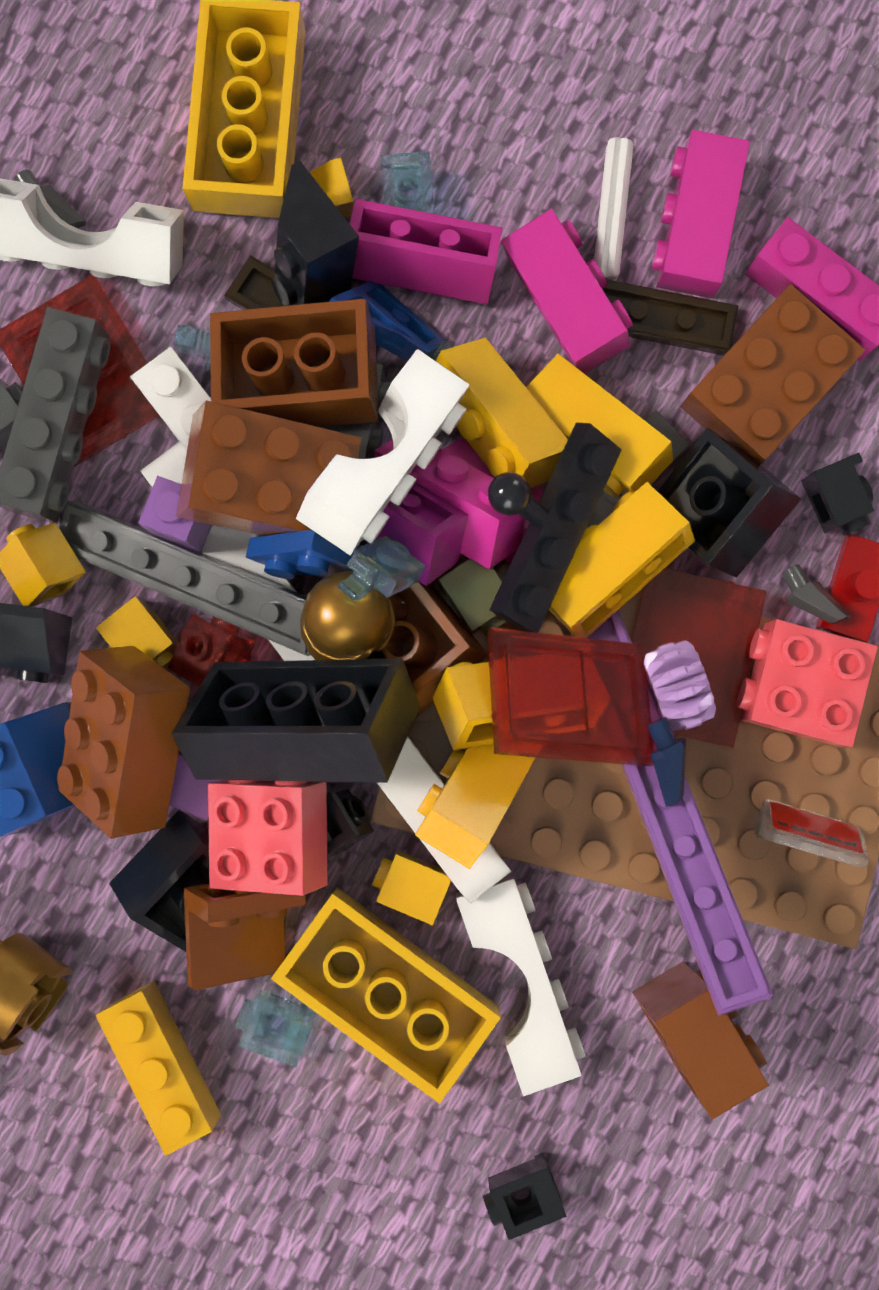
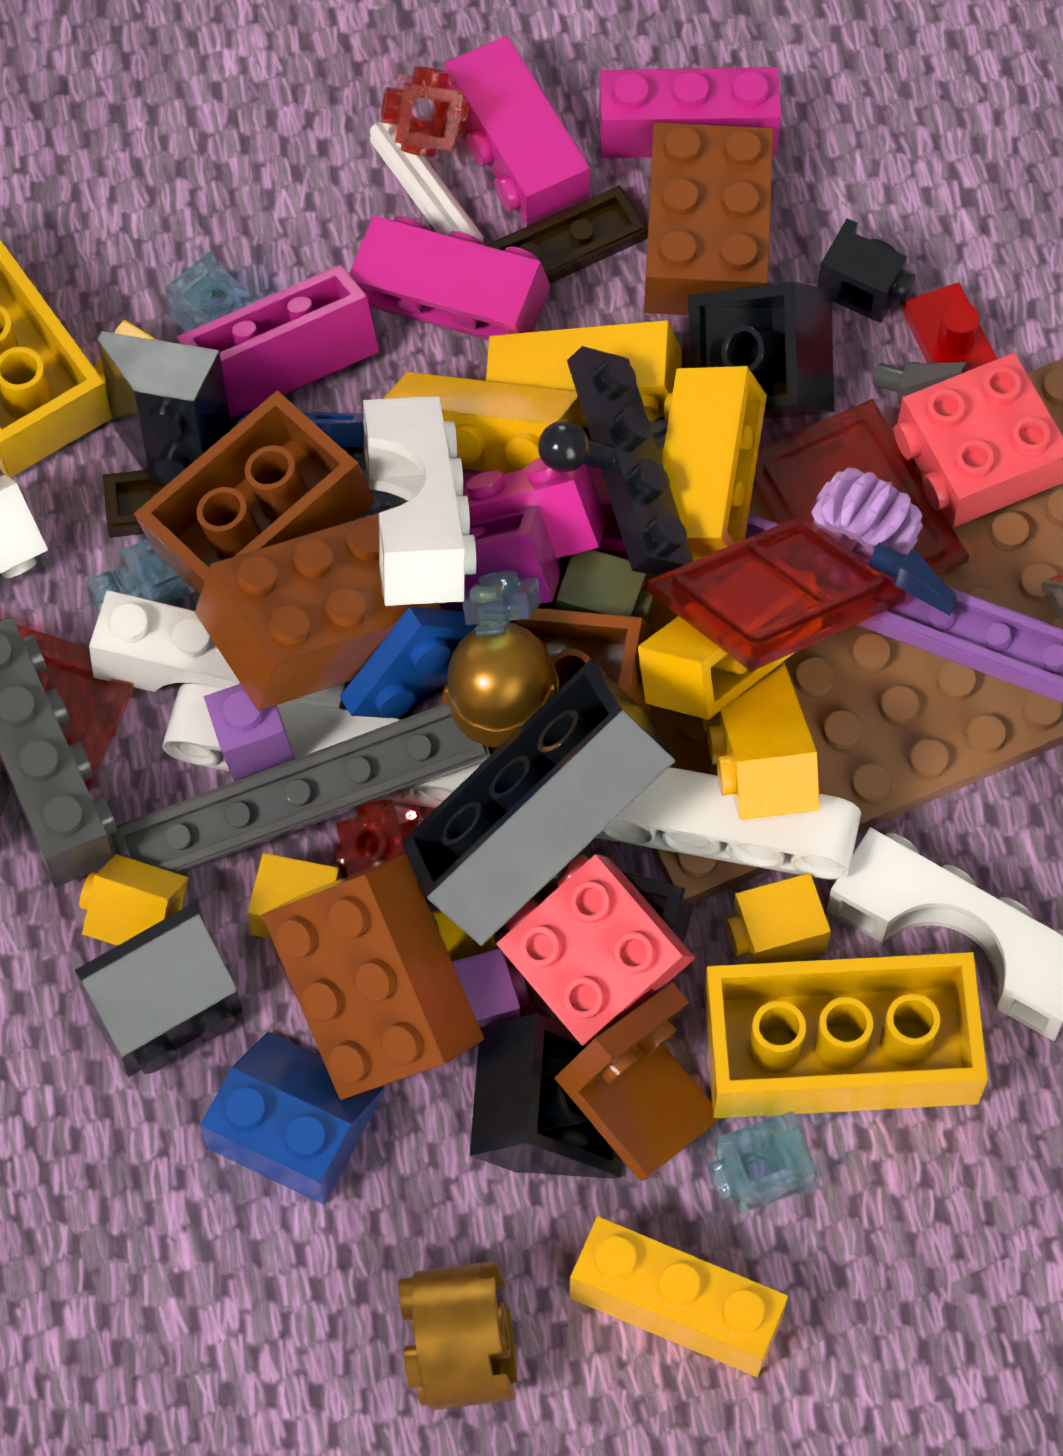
camera: 40 degrees left, 20 degrees down
(635, 169) = (439, 128): none -> clear red brick

